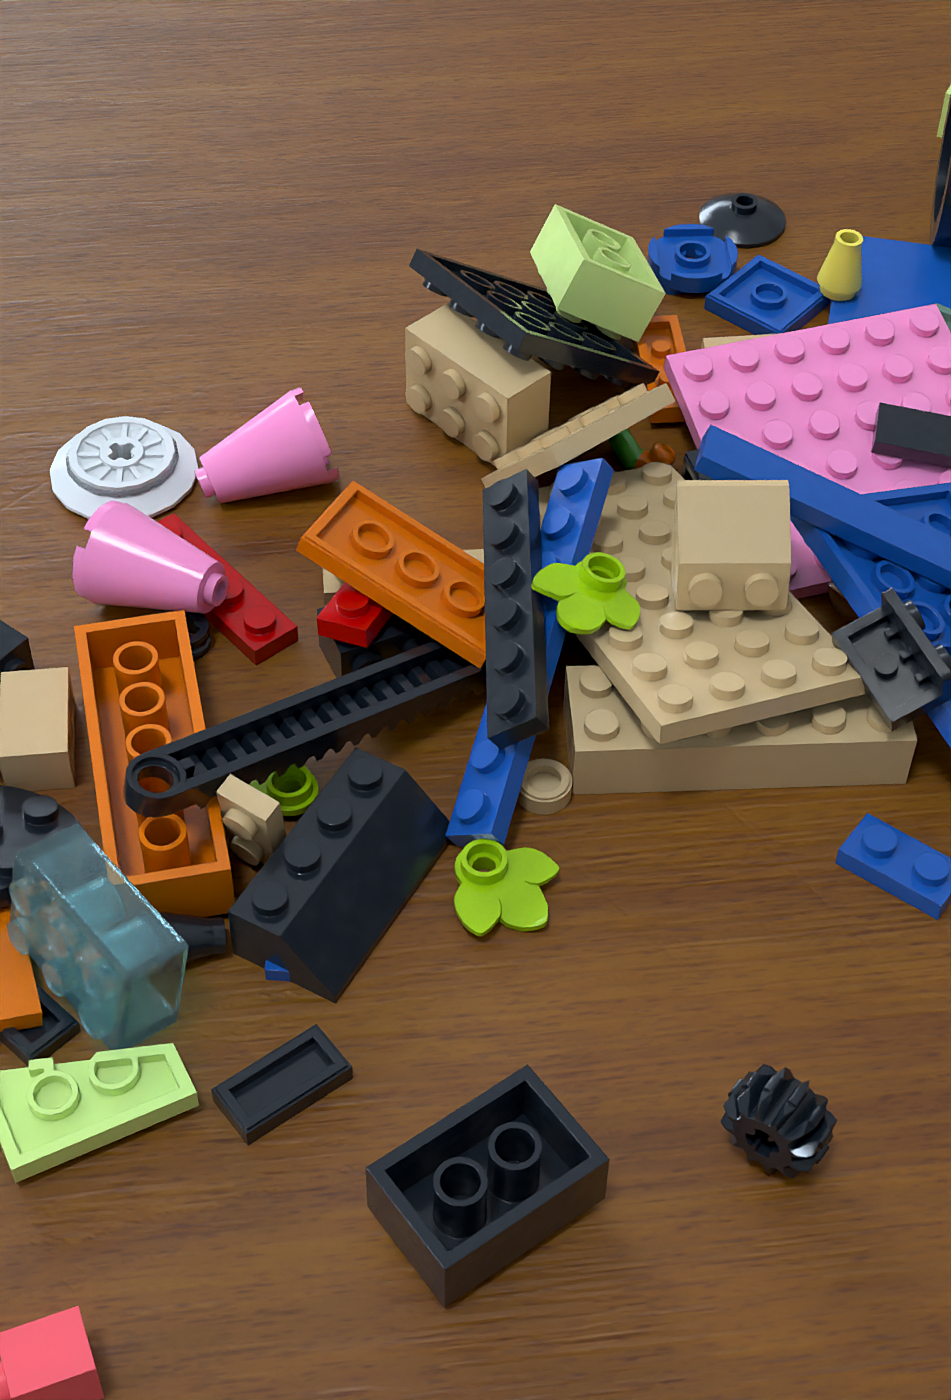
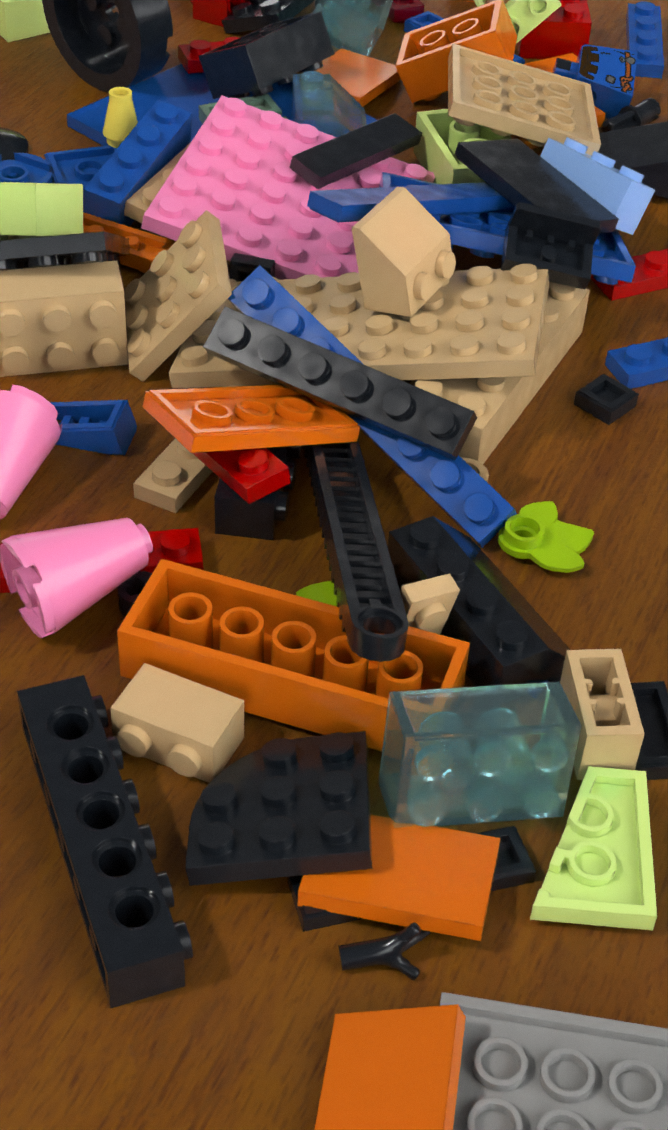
camera: 60 degrees left, 5 degrees down
(238, 1018) = (606, 708): none -> tan brick
(386, 482) = (96, 425): none -> blue slope
(589, 593) = (362, 334): lime plate -> none
(778, 307) = (142, 154): none -> blue brick
(789, 849) = (606, 399): none -> black tile

